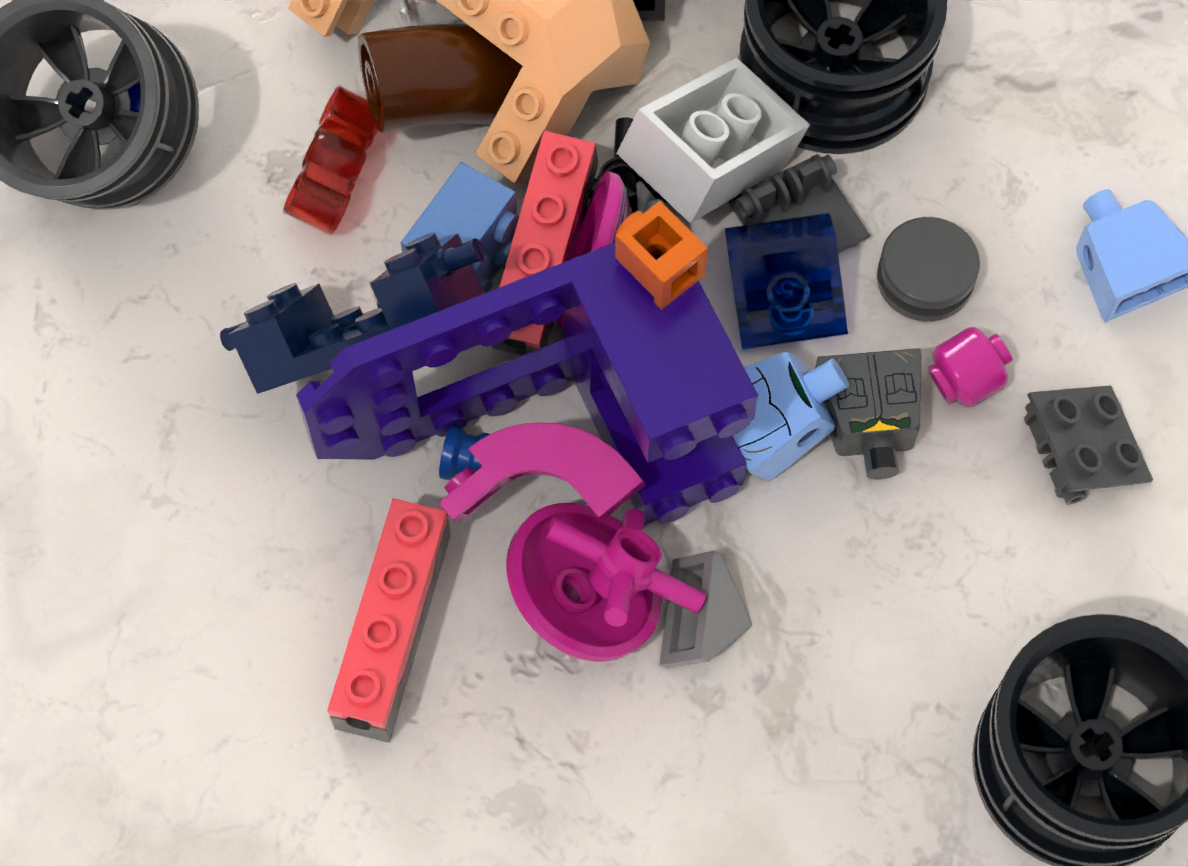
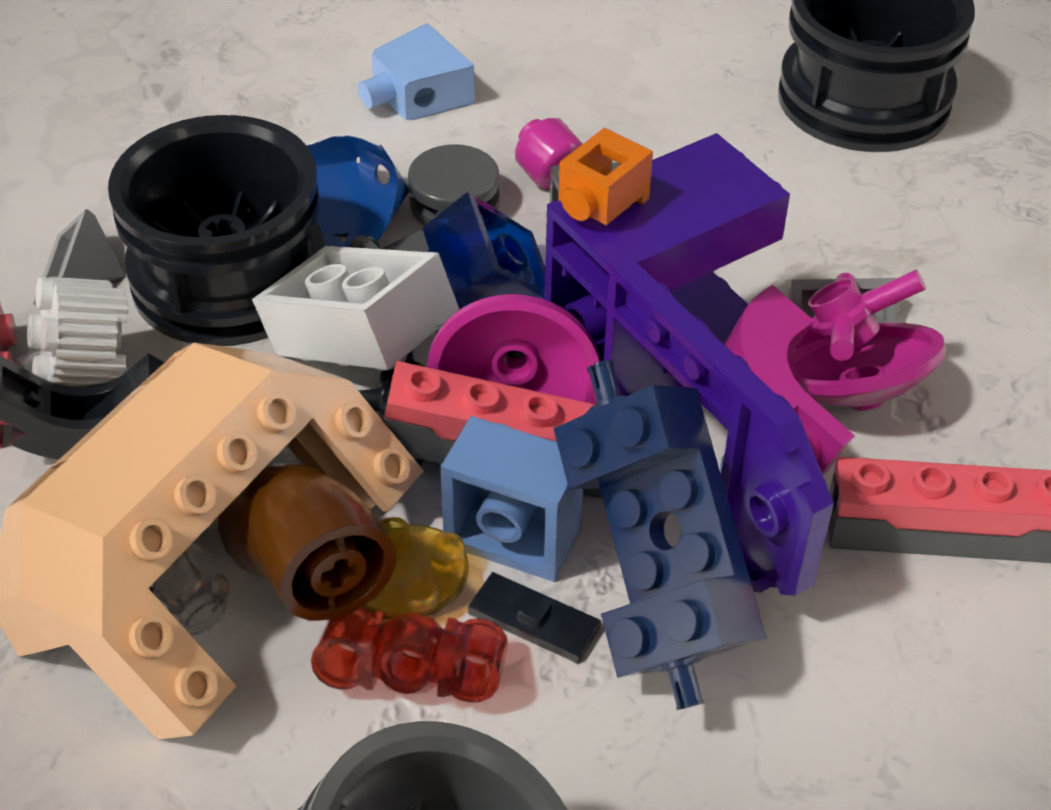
camera: 100 degrees left, 20 degrees down
(352, 284) = (535, 617): none -> black piece
(419, 167) = (427, 572): none -> clear yellow dish
(926, 176) = (351, 192): none -> blue piece
(1085, 440) = (601, 99): dark grey hinge -> none

